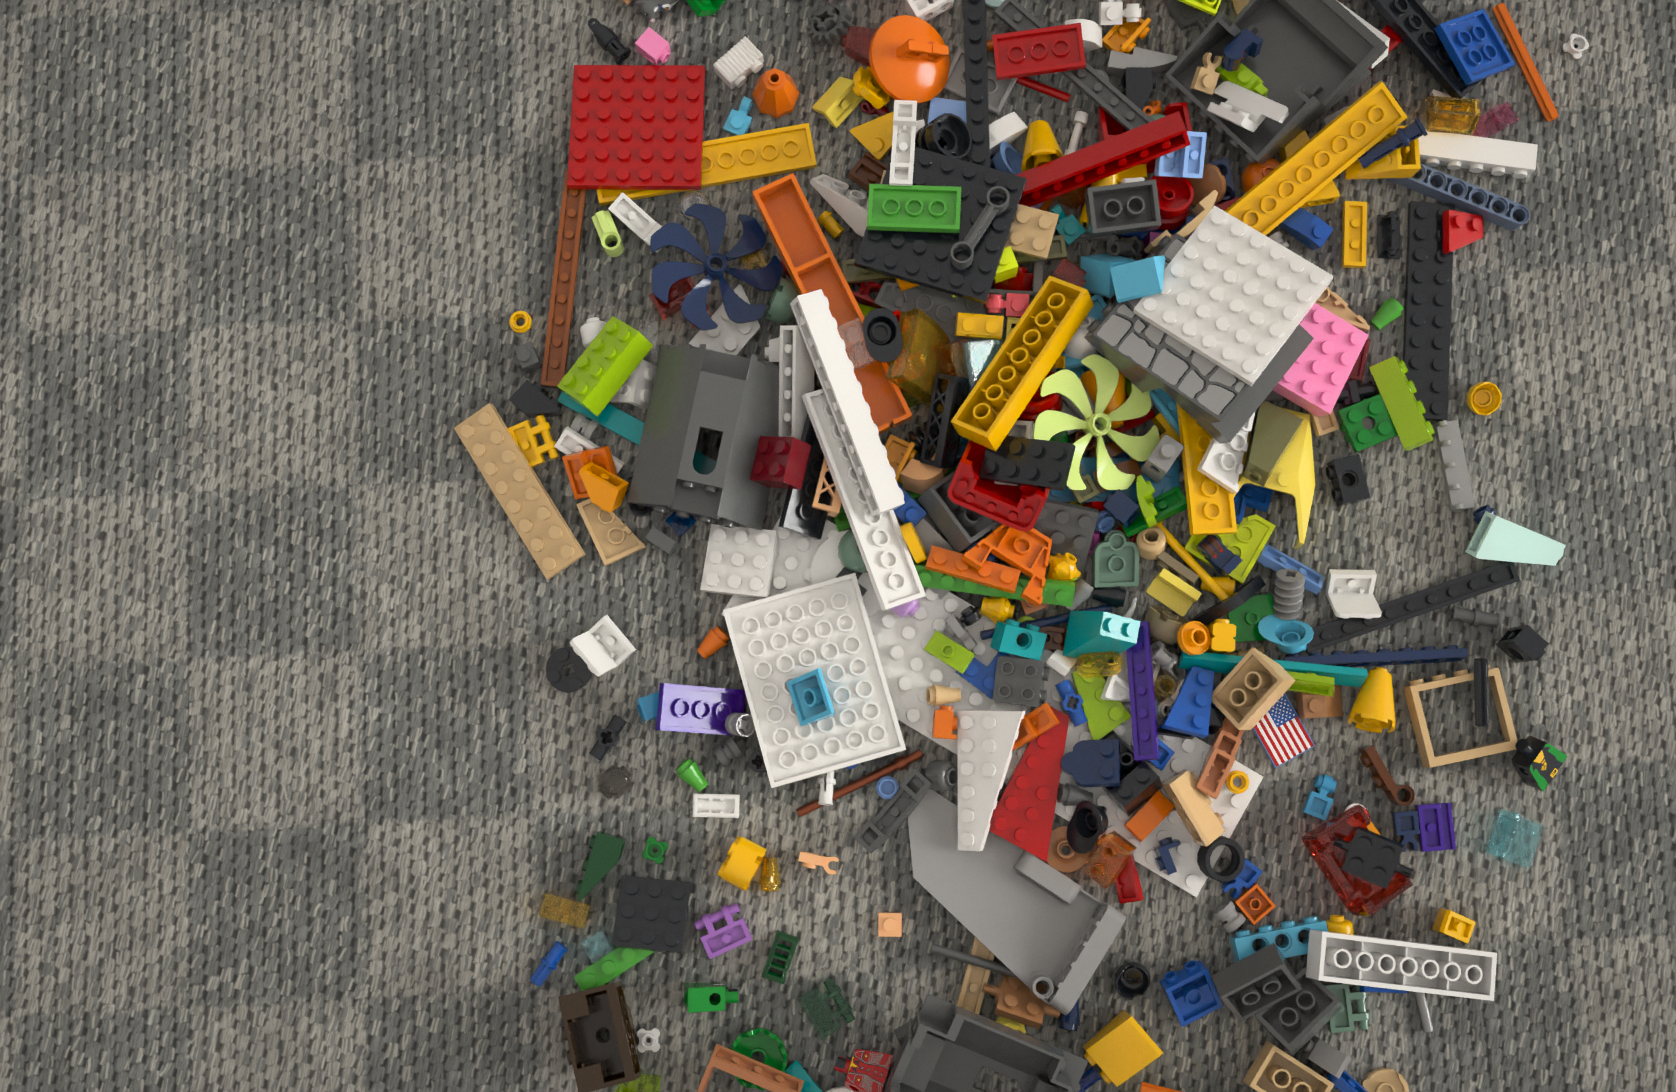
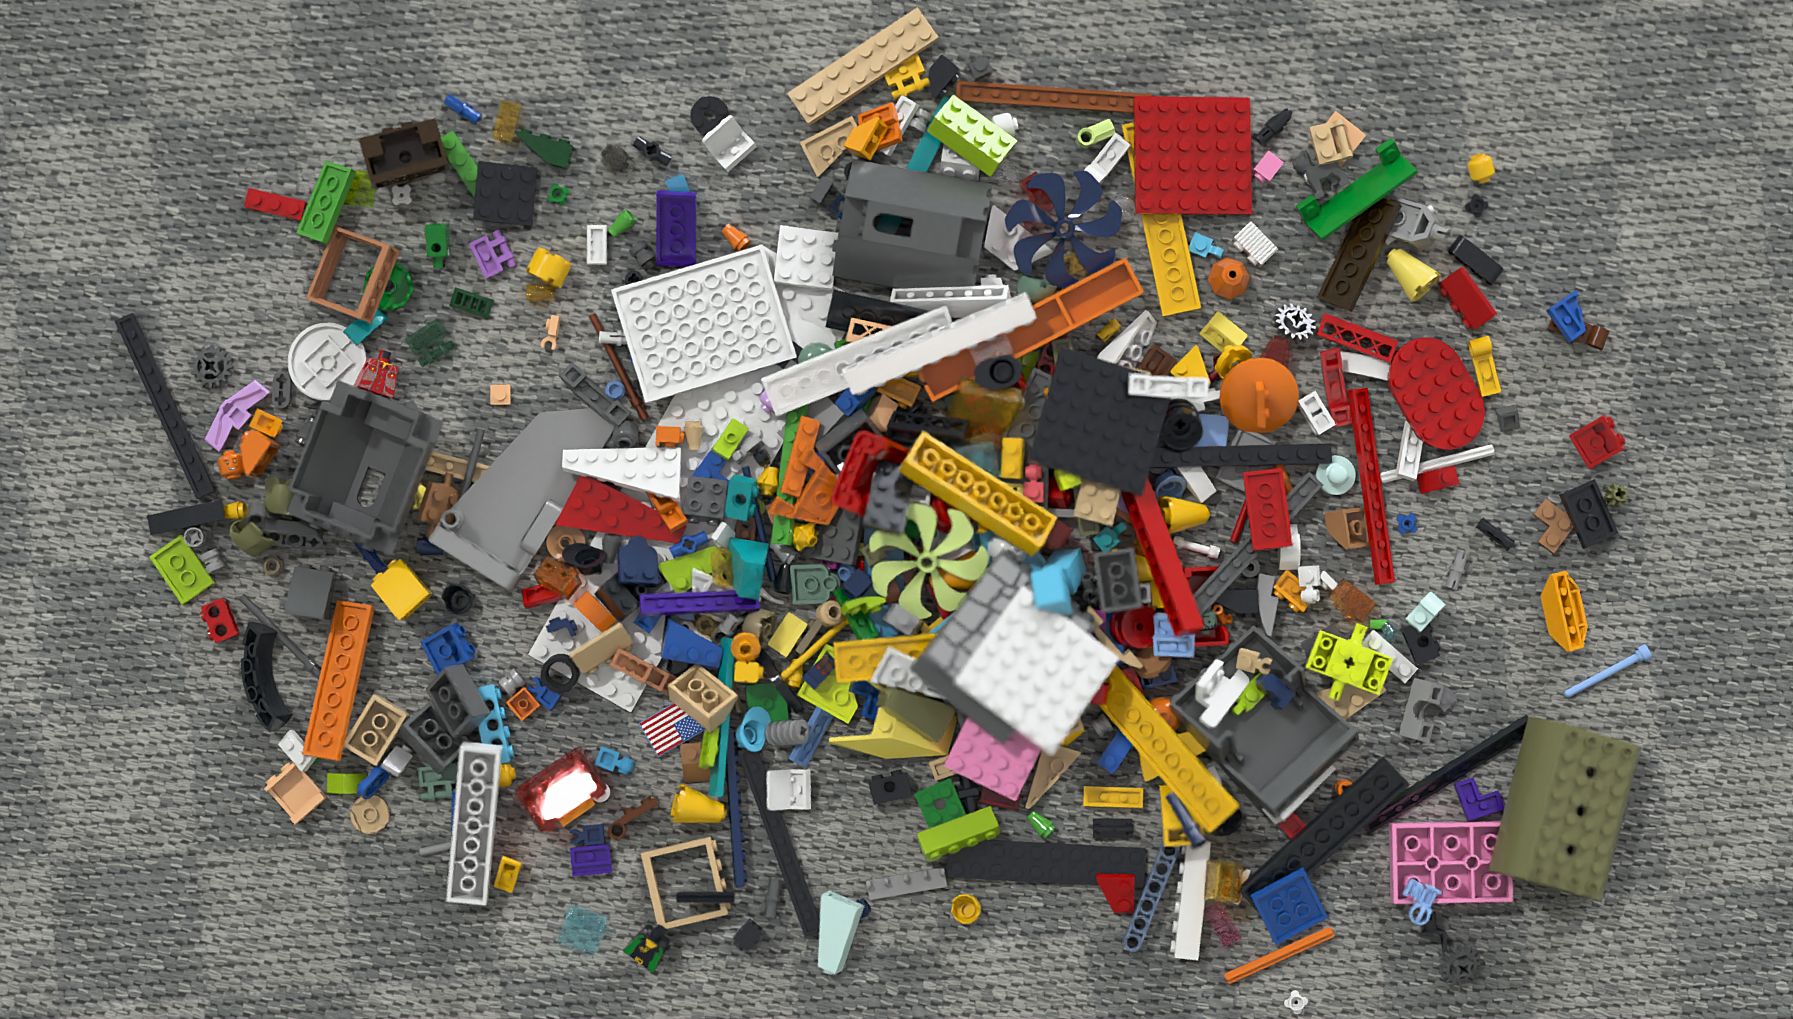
camera: 90 degrees right, 5 degrees up
(520, 315) = (1013, 54): yellow plate -> none
(597, 946) = (477, 149): clear light blue panel -> none
(740, 724) = (661, 265): light grey wheel -> none
(780, 462) = (888, 289): dark red brick -> none
(811, 697) = (687, 321): medium azure slope -> none
(913, 542) = (822, 405): yellow beam -> none
(914, 208) = (1109, 396): bright green plate -> none
(979, 227) = (1093, 453): dark grey piece -> none
(1244, 782) = (620, 692): yellow plate -> none
(1372, 857) = (563, 800): black plate -> none

